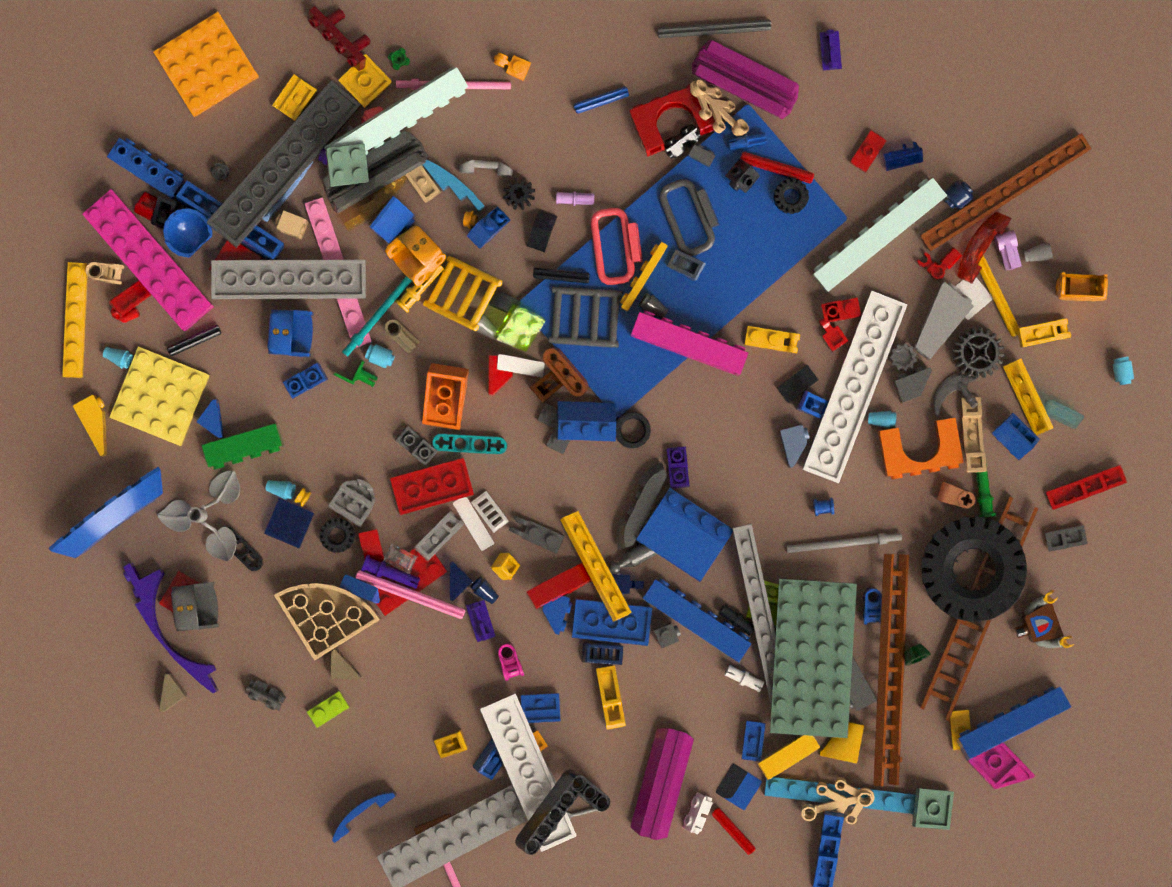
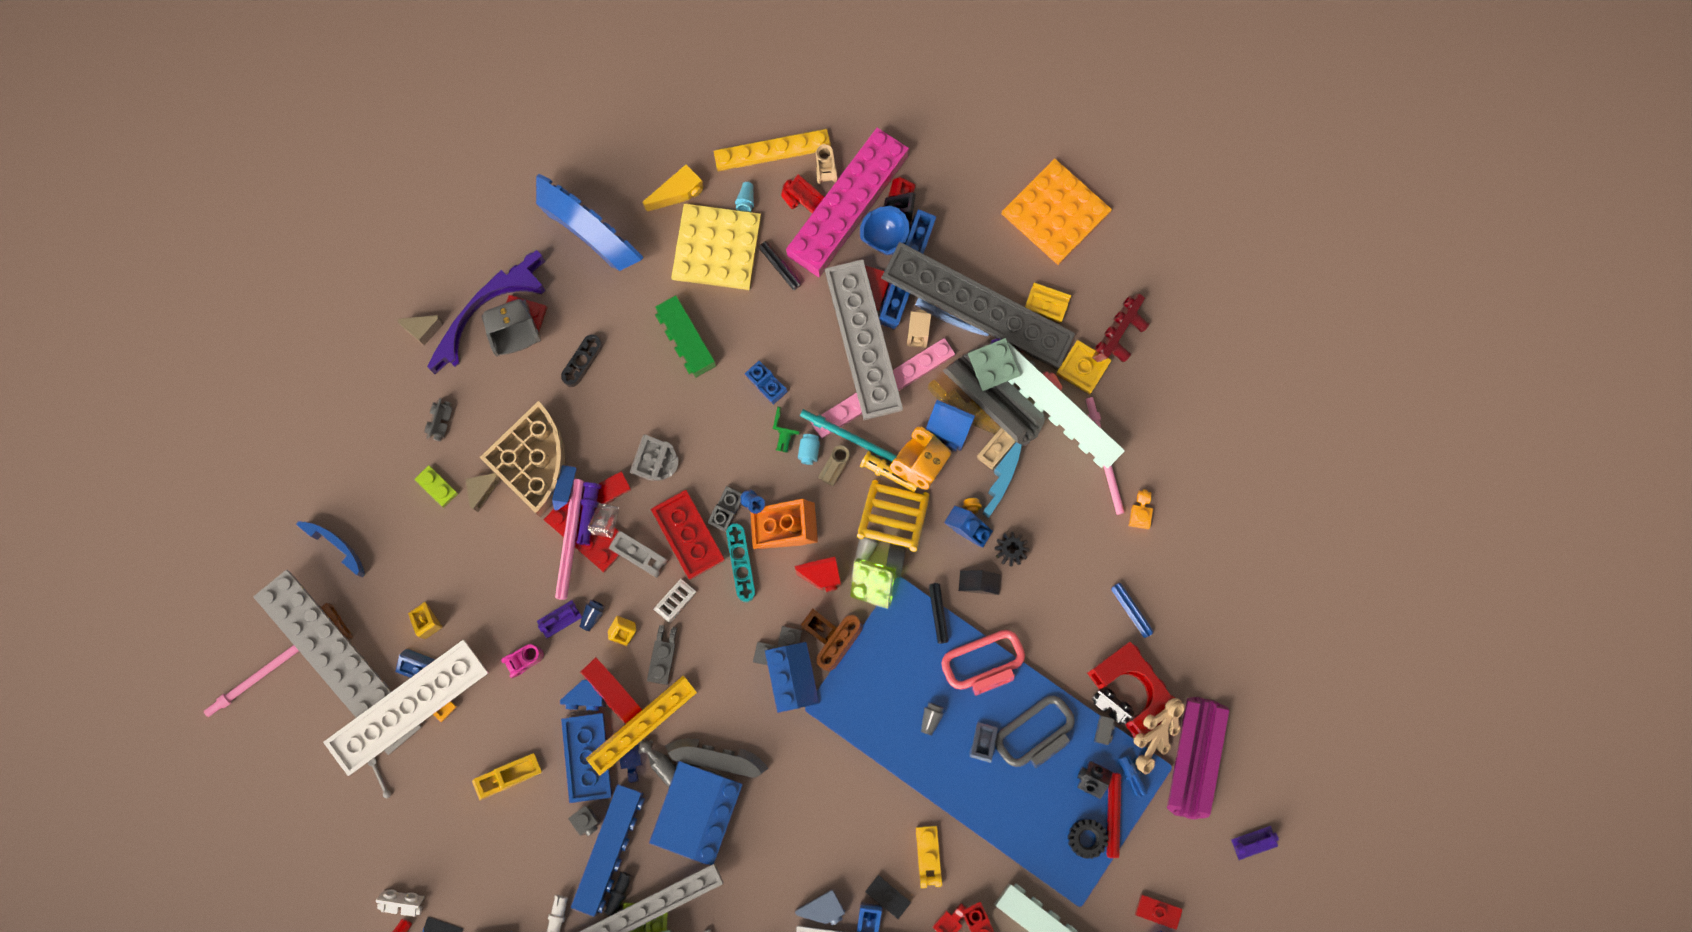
camera: 80 degrees right, 10 degrees down
(146, 168) = (938, 177): blue brick -> none
(179, 515) = (600, 295): light grey plant -> none
(212, 419) = (704, 301): blue slope -> none
(220, 171) = (954, 249): dark grey plate -> none
(283, 489) = (650, 386): medium azure cone -> none
(289, 523) = (617, 401): clear blue plate -> none
(290, 333) = (810, 355): blue piece -> none
(303, 497) = (647, 408): yellow bush -> none
(325, 535) = (606, 443): black tyre -> none
(400, 53) = (1116, 389): green plate -> none
(418, 418) = (752, 501): none -> blue bush
(458, 581) = (596, 585): clear blue slope -> none
(469, 166) = (1031, 526): light grey bar -> none
(473, 523) = (659, 587): white sticker -> none
(520, 365) = (833, 593): white sticker -> none
(541, 707) = (480, 704): blue plate -> none
(558, 802) = (374, 745): black beam -> none
(574, 198) = (1022, 608): lavender axle -> none
(577, 293) = (879, 663): dark grey bar -> none
(586, 653) = (557, 746): dark blue slope -> none
(638, 283) = (969, 701): yellow plate -> none
(647, 430) = (810, 731): black tyre -> none
(661, 783) = (423, 855): magenta piece -> none
(678, 467) = (767, 788): dark purple slope -> none
(689, 344) = (900, 767): dark pink brick -> none
(715, 28) = (1241, 711): dark grey axle -> none

